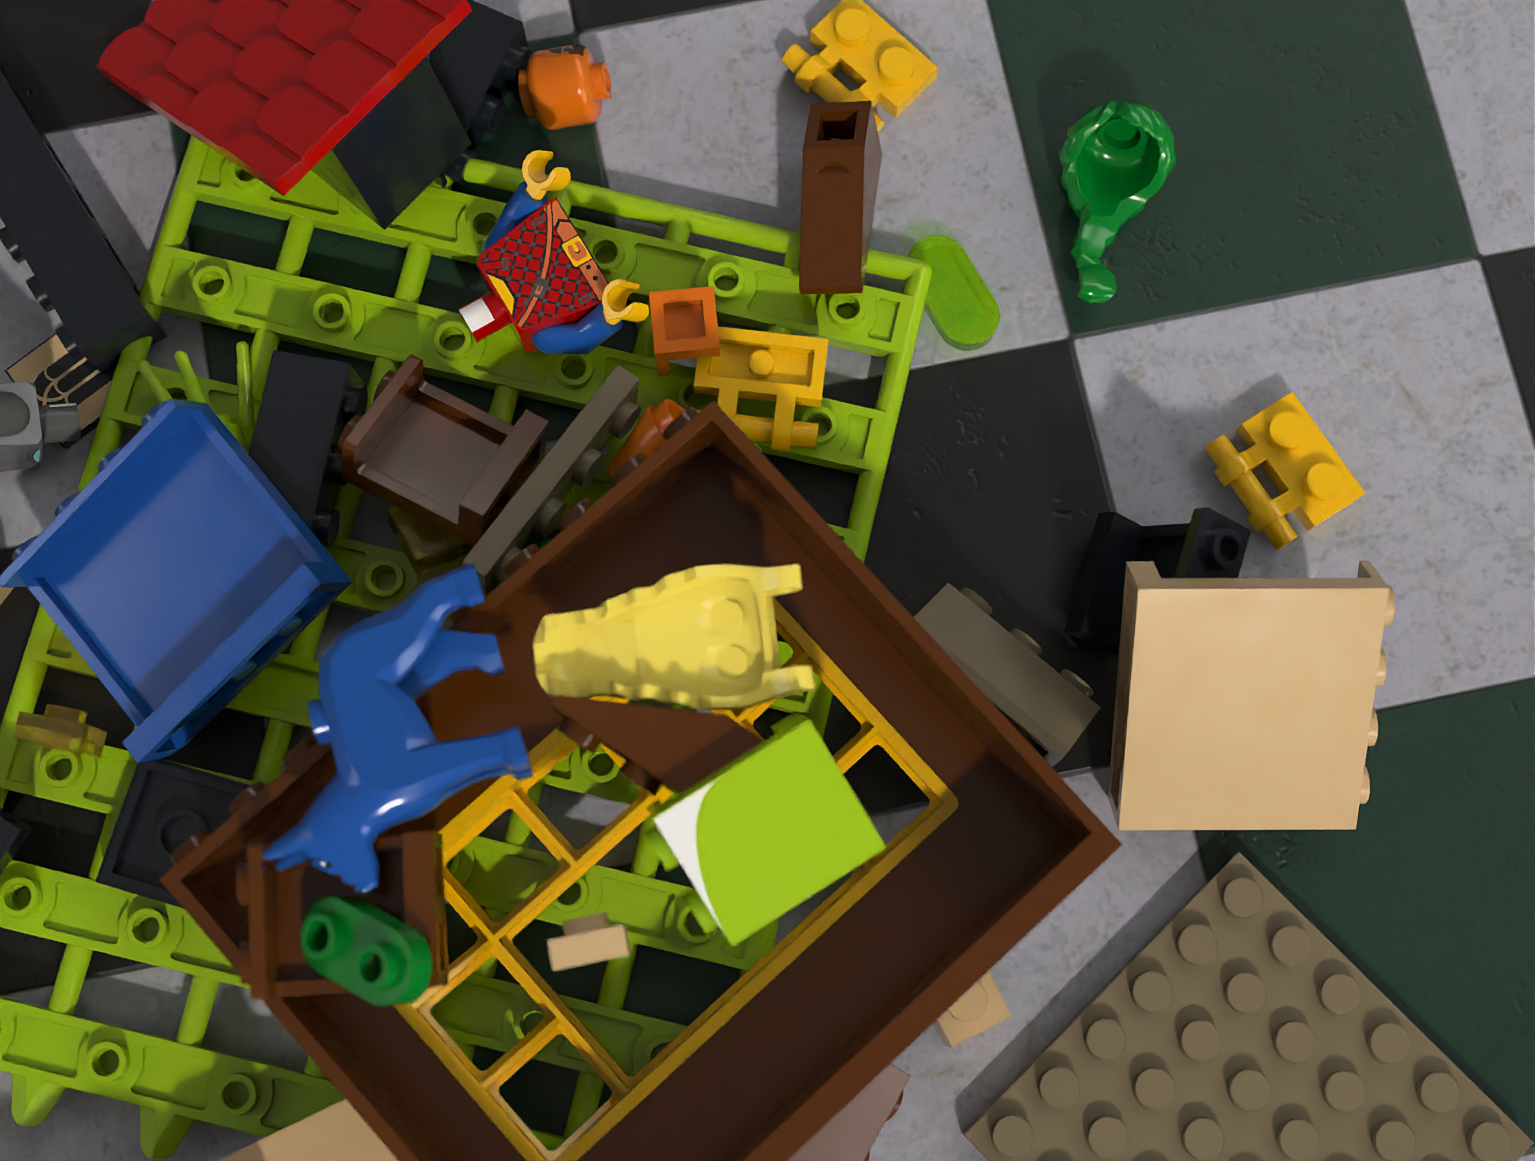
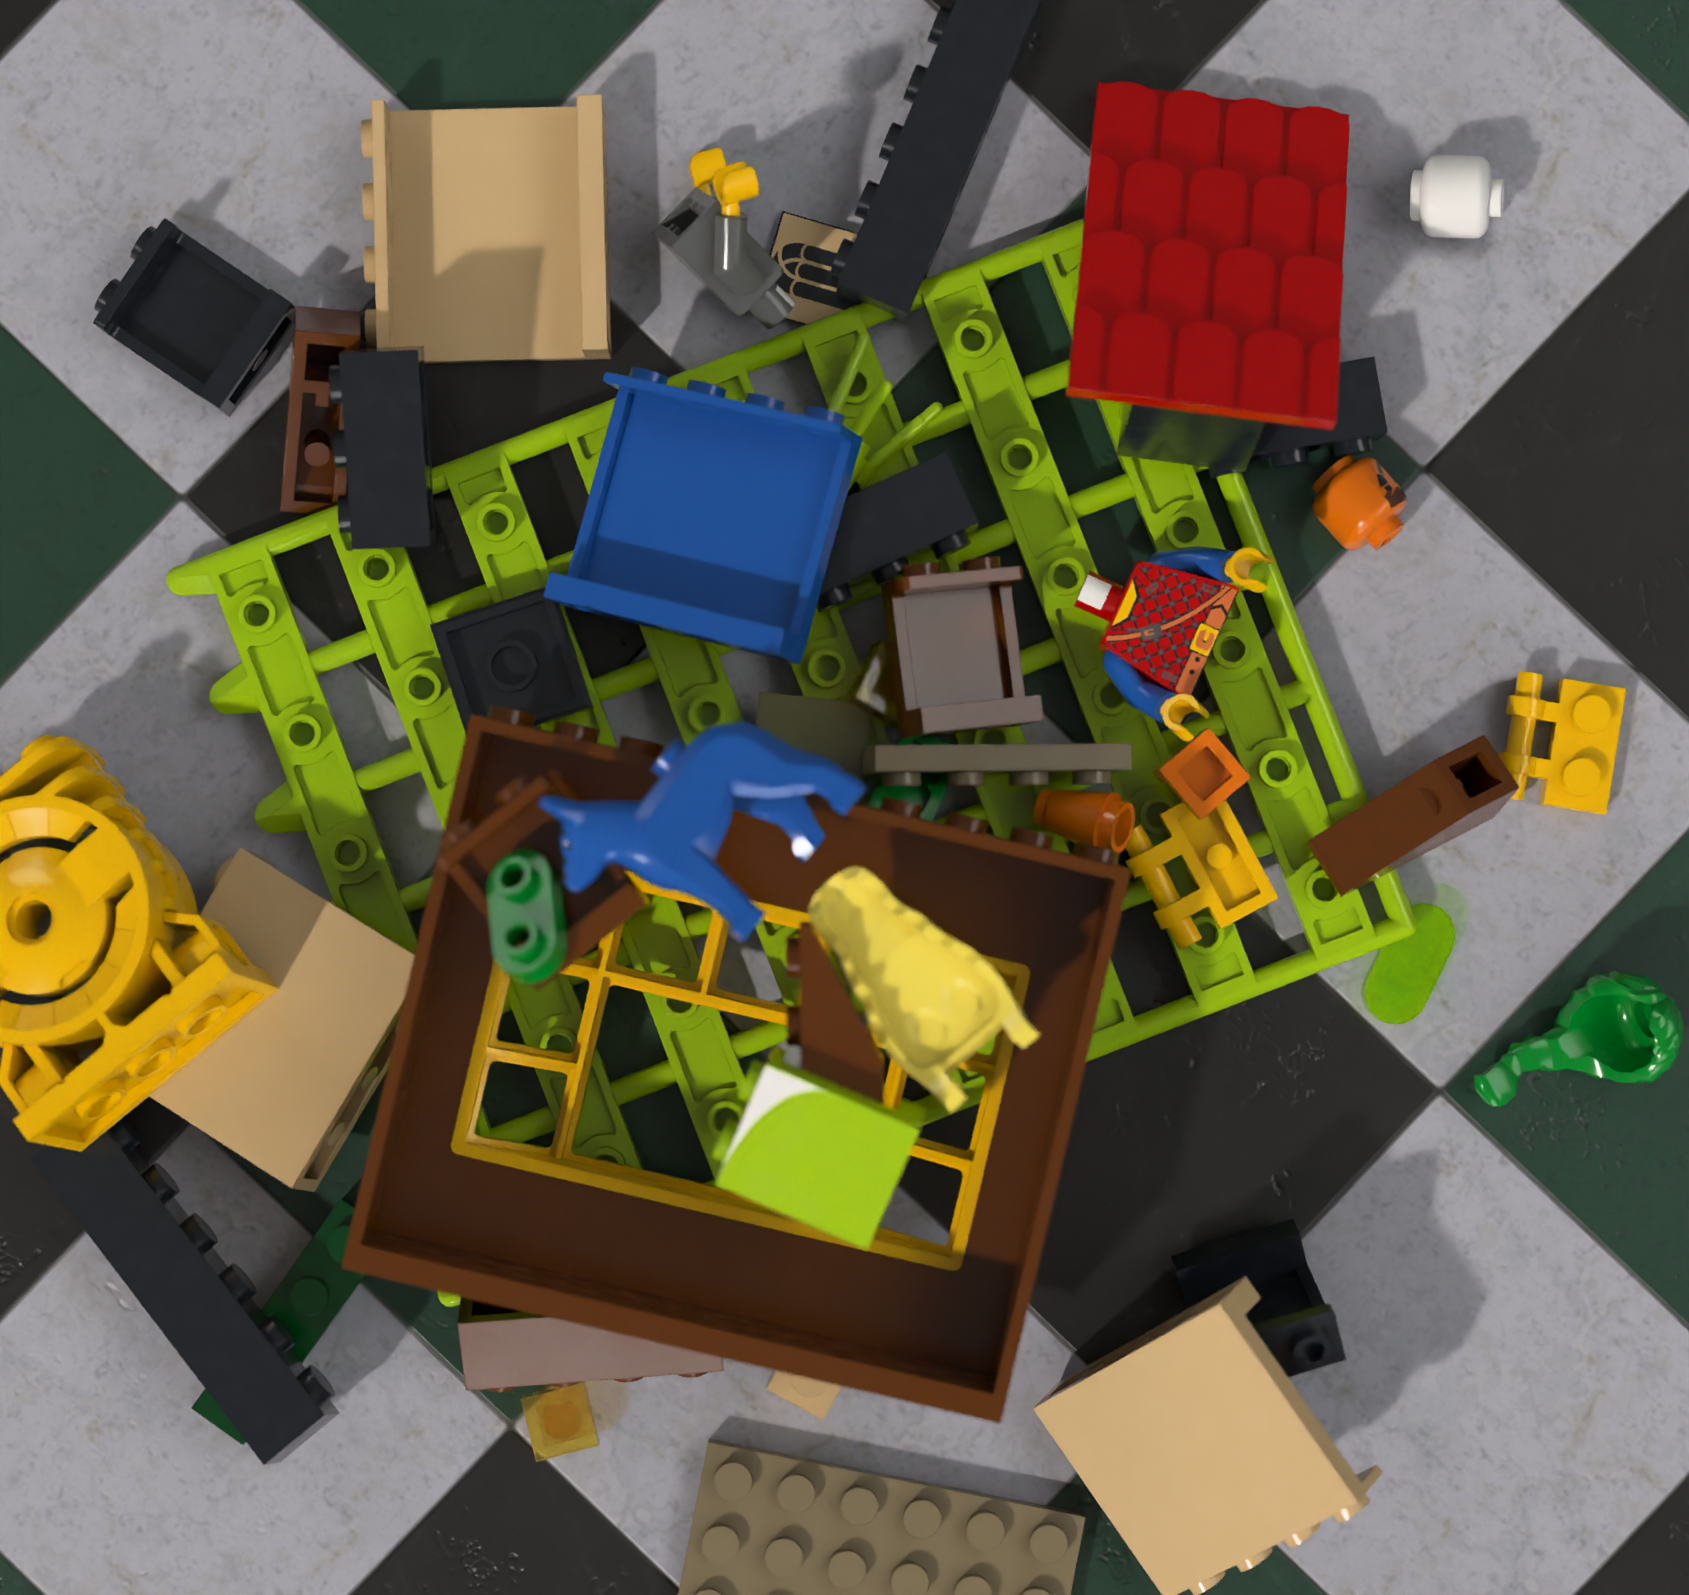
camera: 55 degrees right, 10 degrees up
(60, 730) = (526, 509): clear yellow plate -> none
(588, 941) = (646, 1073): tan plate -> none
(1007, 667) = (1095, 1230): dark tan slope -> none
(1298, 462) = (1458, 1357): yellow plate -> none

